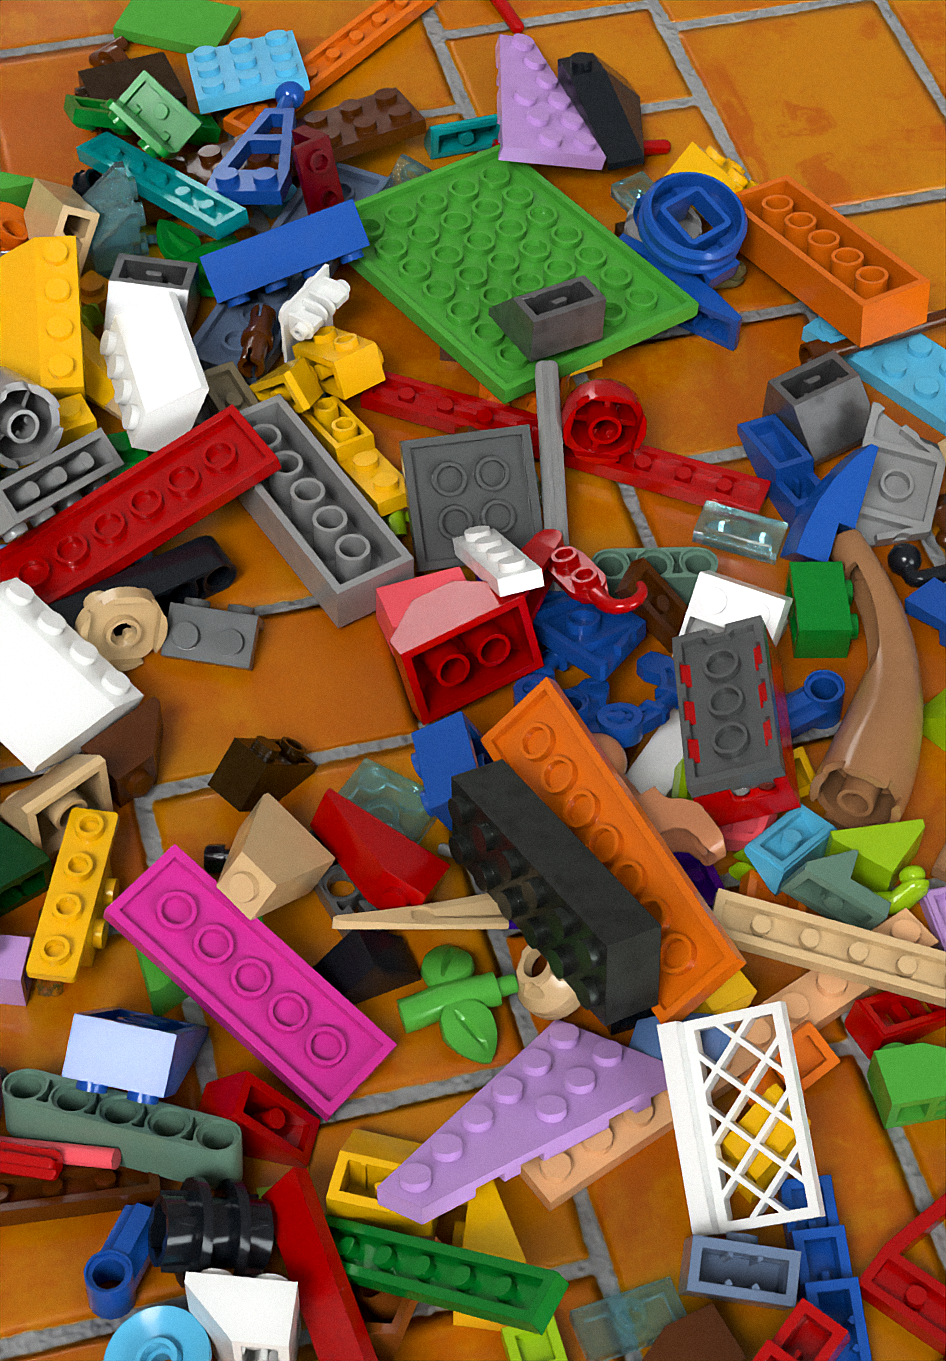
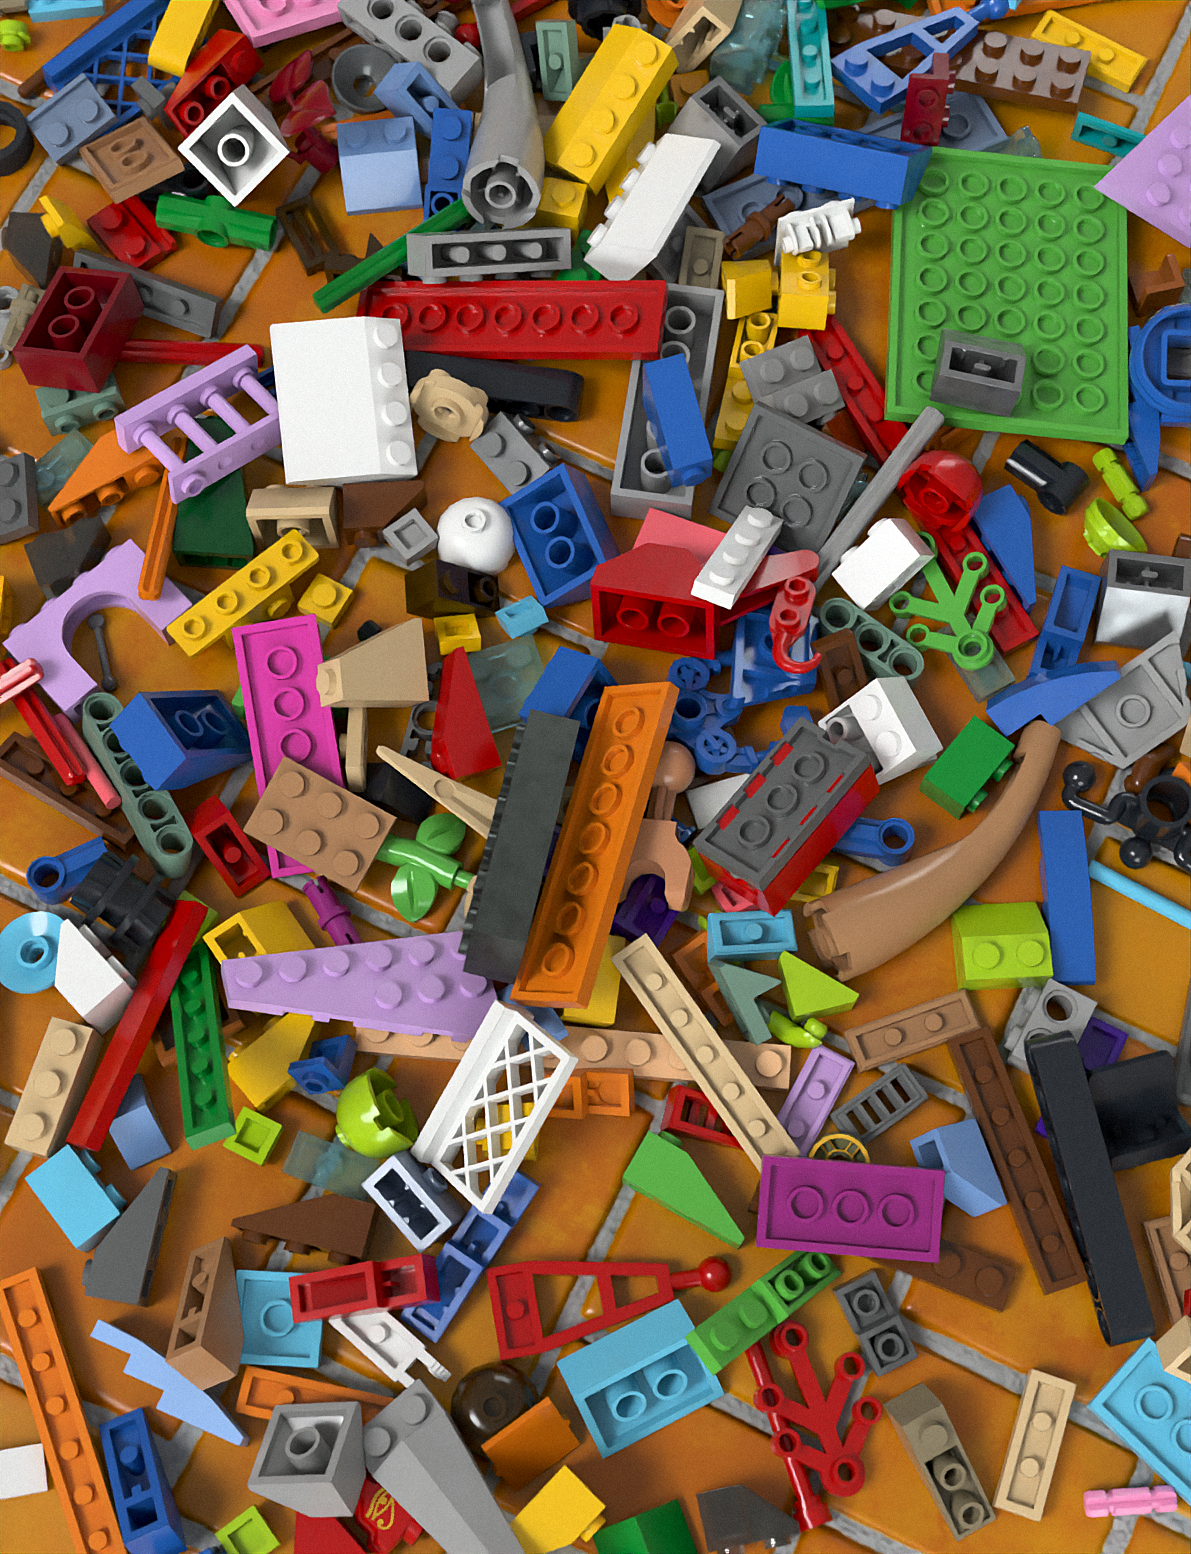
camera: 45 degrees right, 20 degrees up
(140, 854) = (326, 600): none -> yellow plate
(183, 753) = (411, 537): none -> light grey tile
(236, 708) = (476, 535): none -> white cylinder
(302, 798) = (457, 632): none -> yellow plate
(307, 943) = (354, 748): none -> tan plate
(320, 662) = (559, 535): none -> blue slope
(337, 1028) = (320, 824): none -> medium nougat plate
(344, 749) = (522, 617): none -> medium azure plate
(347, 493) = (676, 421): none -> blue slope
(388, 421) = (793, 382): none -> light grey plate
(412, 1105) = (332, 915): none -> magenta pin
(421, 91) = (1108, 59): none -> yellow tile
(544, 1228) = (326, 1066): none -> blue bracket
(605, 504) = (882, 563): none -> white brick
(609, 201) = (1156, 288): none -> dark orange panel
(630, 1237) = (373, 1118): none -> lime cylinder
(672, 377) = (1056, 483): none -> black piece
(683, 432) = (1006, 534): none -> blue slope
(685, 506) = (953, 610): none -> bright green plant
(716, 350) = (1120, 484): none -> lime axle
(744, 380) = (1109, 529): none -> lime piece

